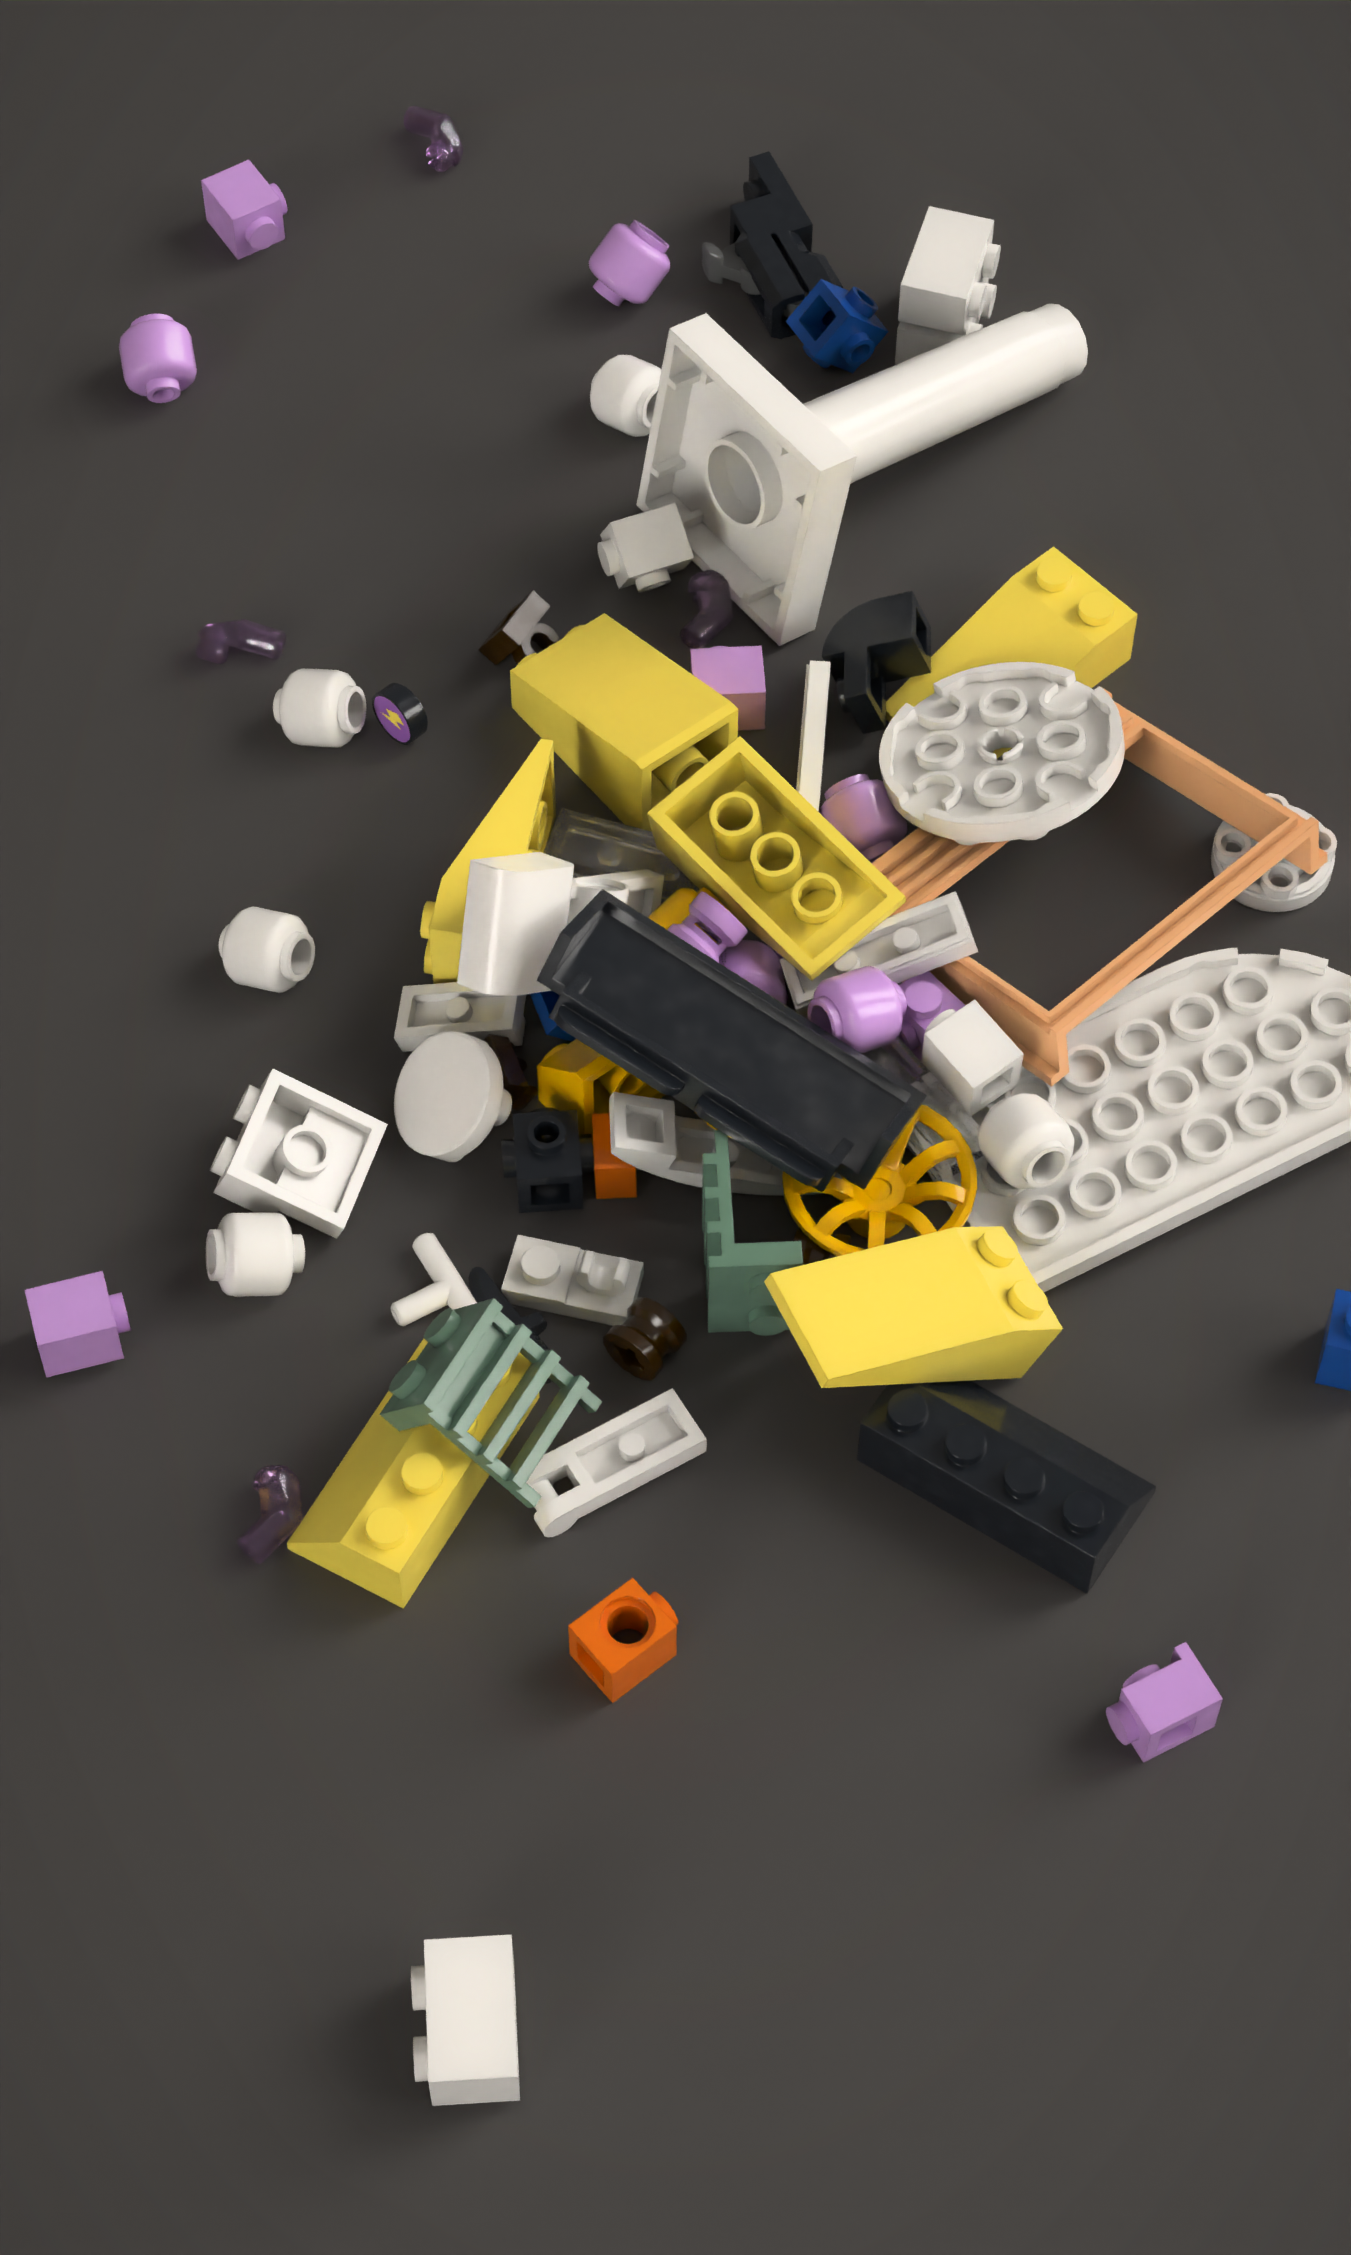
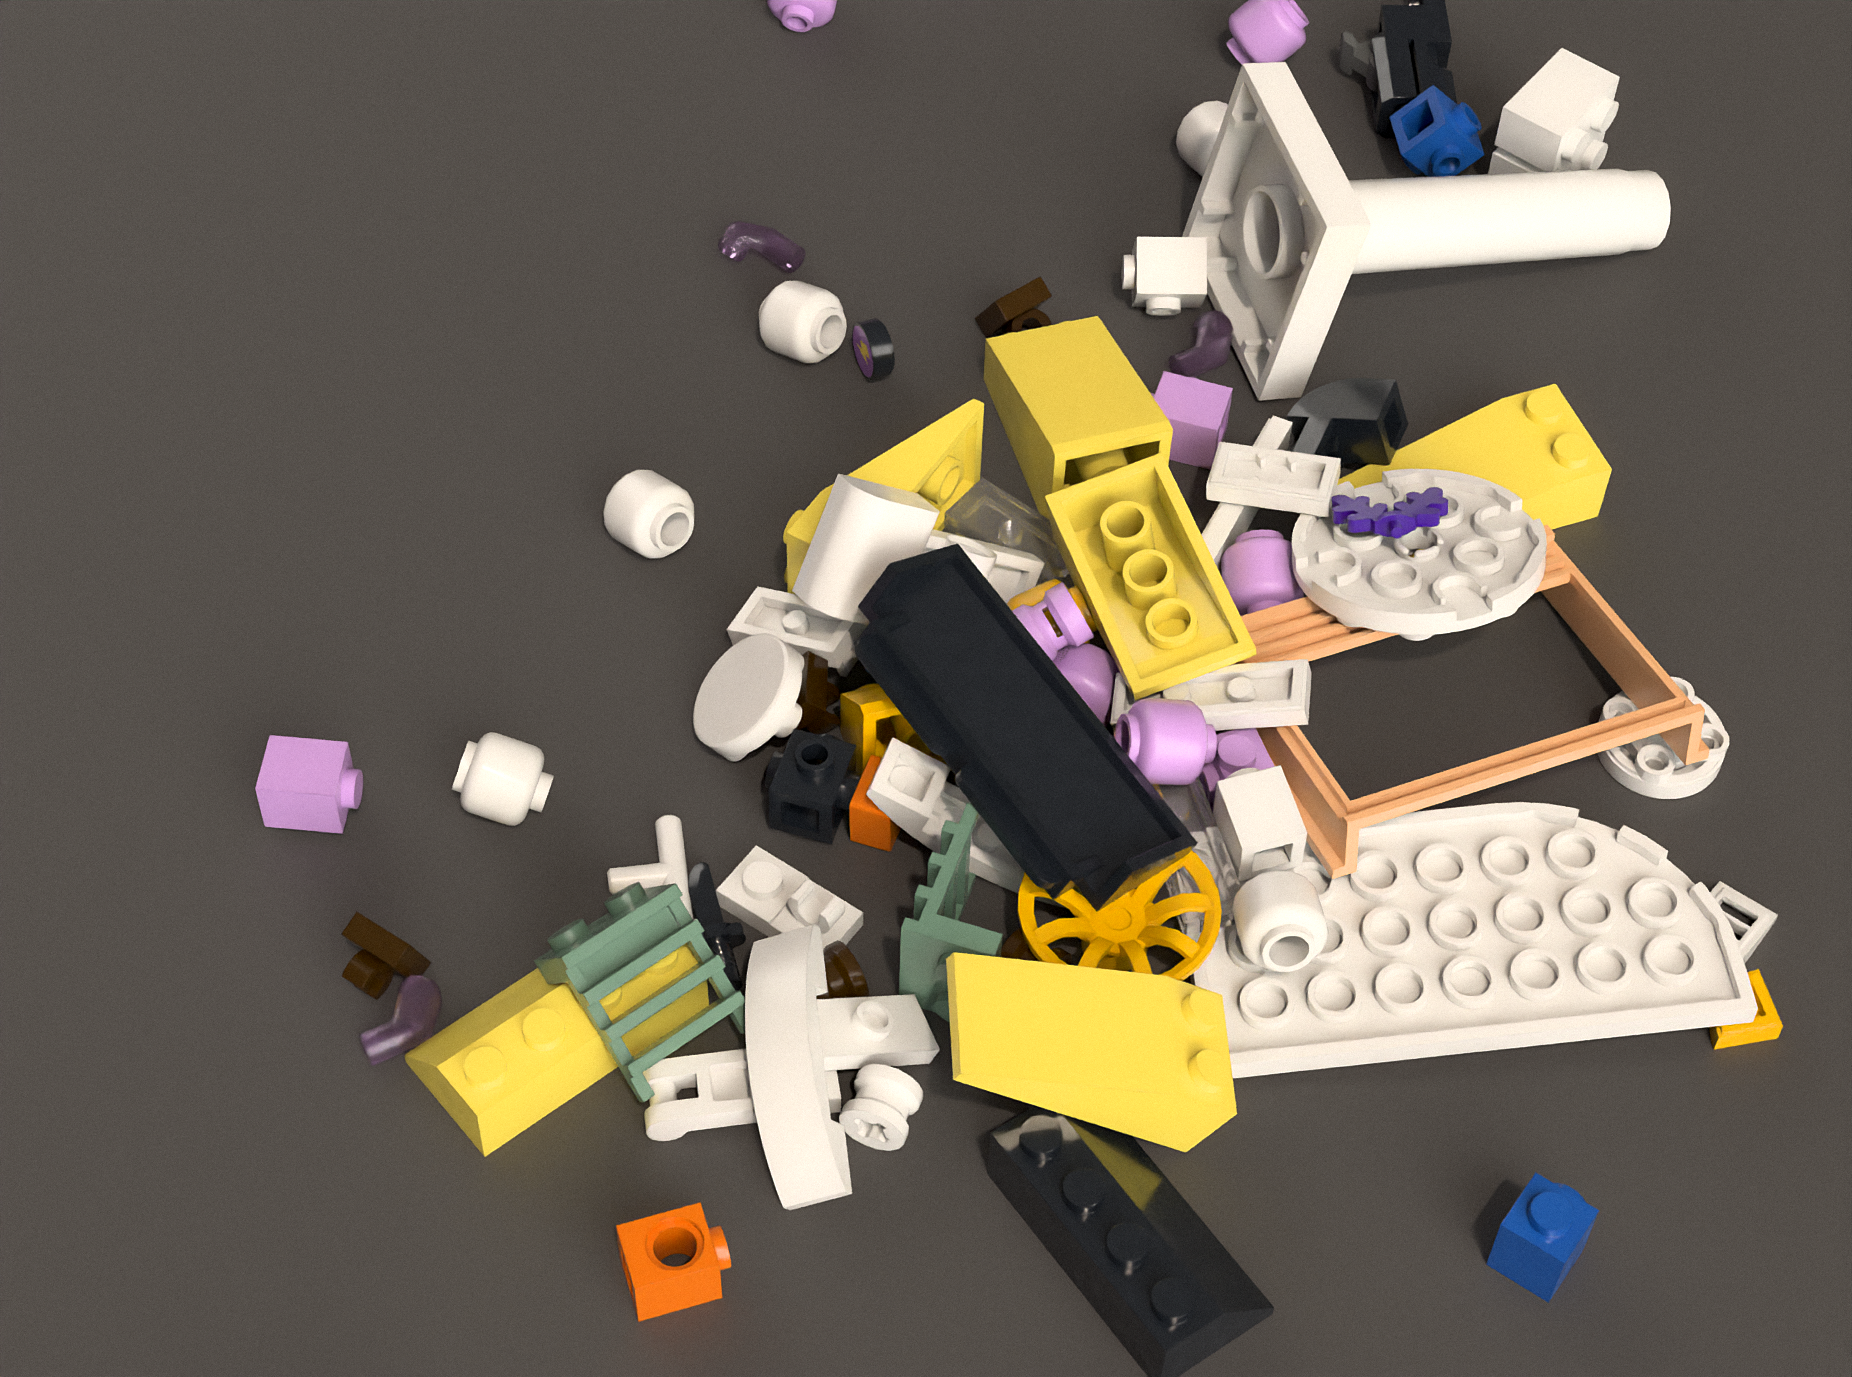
camera: 20 degrees right, 5 degrees down
(223, 1459) = (379, 957): none -> dark brown tile
(297, 1154) = (586, 702): white plate -> none
(654, 1427) = (788, 1069): none -> white slope
(699, 1372) = (874, 1032): none -> white plate
(744, 1434) = (881, 1107): none -> white wheel
(841, 724) = (1273, 479): none -> white plate
(986, 716) = (1417, 511): none -> dark purple animal

